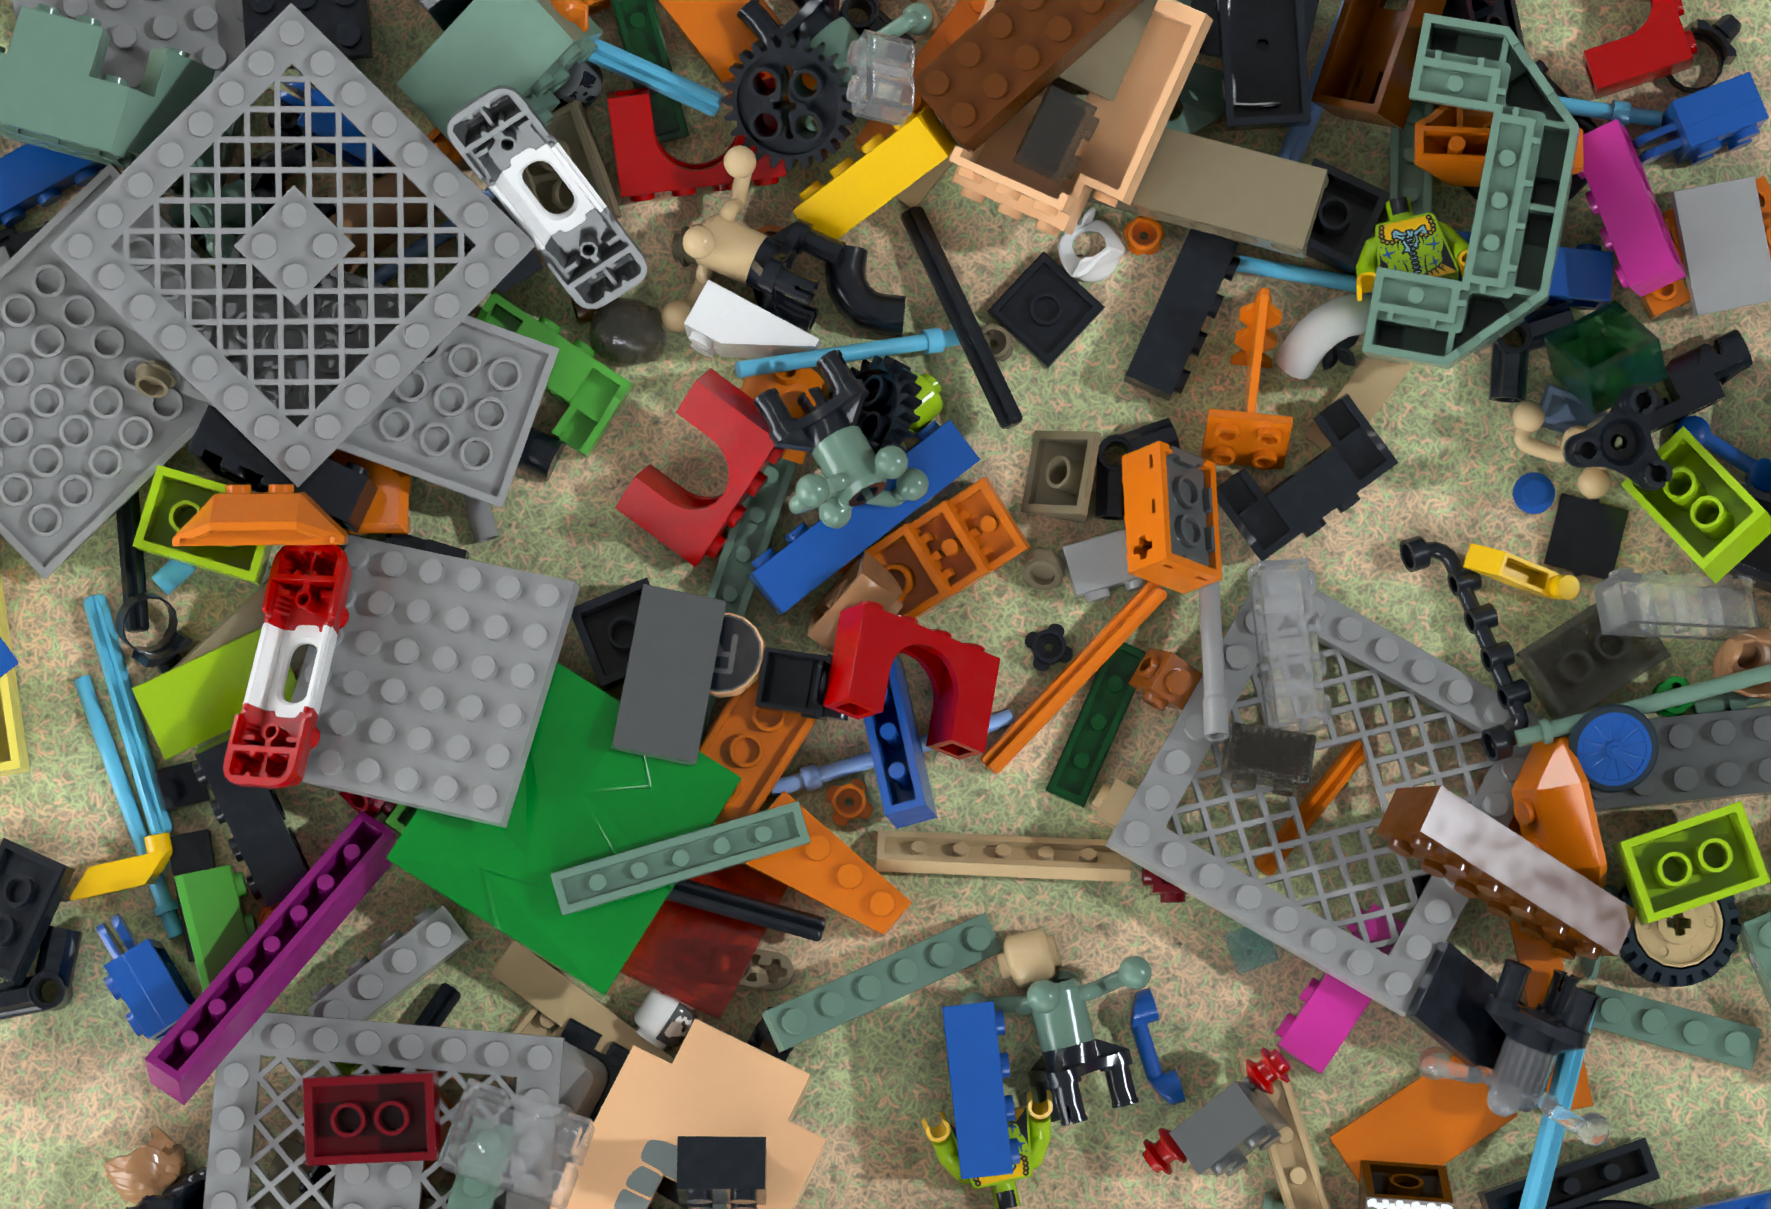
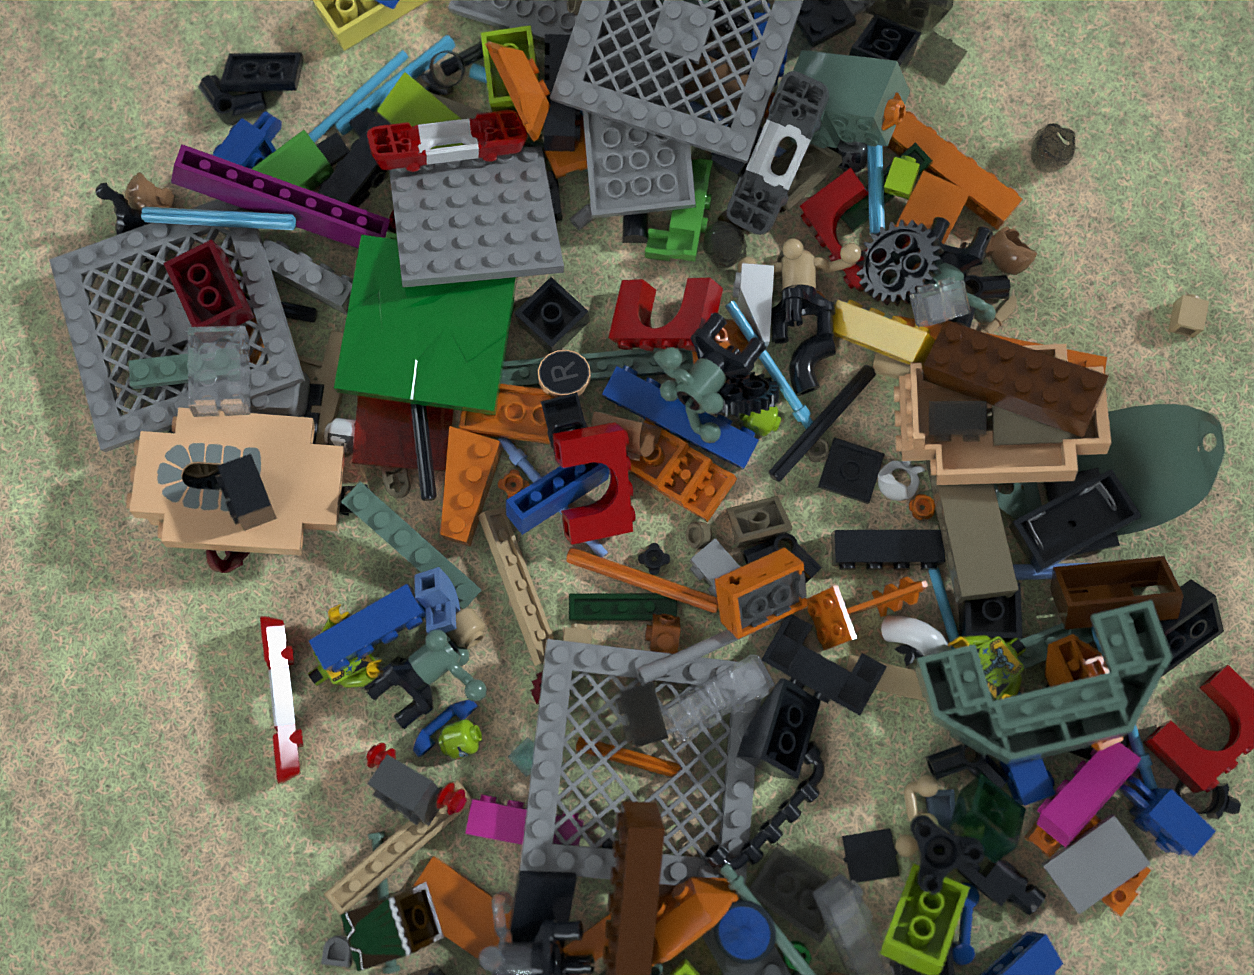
camera: 70 degrees right, 5 degrees down
(127, 872) = (307, 119): yellow piece -> none
(257, 1062) = (218, 218): none -> medium azure axle
(653, 30) = (901, 177): none -> lime brick
(668, 675) = (535, 344): dark grey tile -> none
(680, 858) = (429, 394): sand green plate -> none
(981, 974) = (439, 598): none -> medium blue brick
(1185, 1031) = (460, 739): none -> lime head
(1371, 579) = (780, 731): none -> black slope
(1520, 573) = (828, 824): yellow piece -> none
(1533, 493) = (881, 810): blue plate -> none

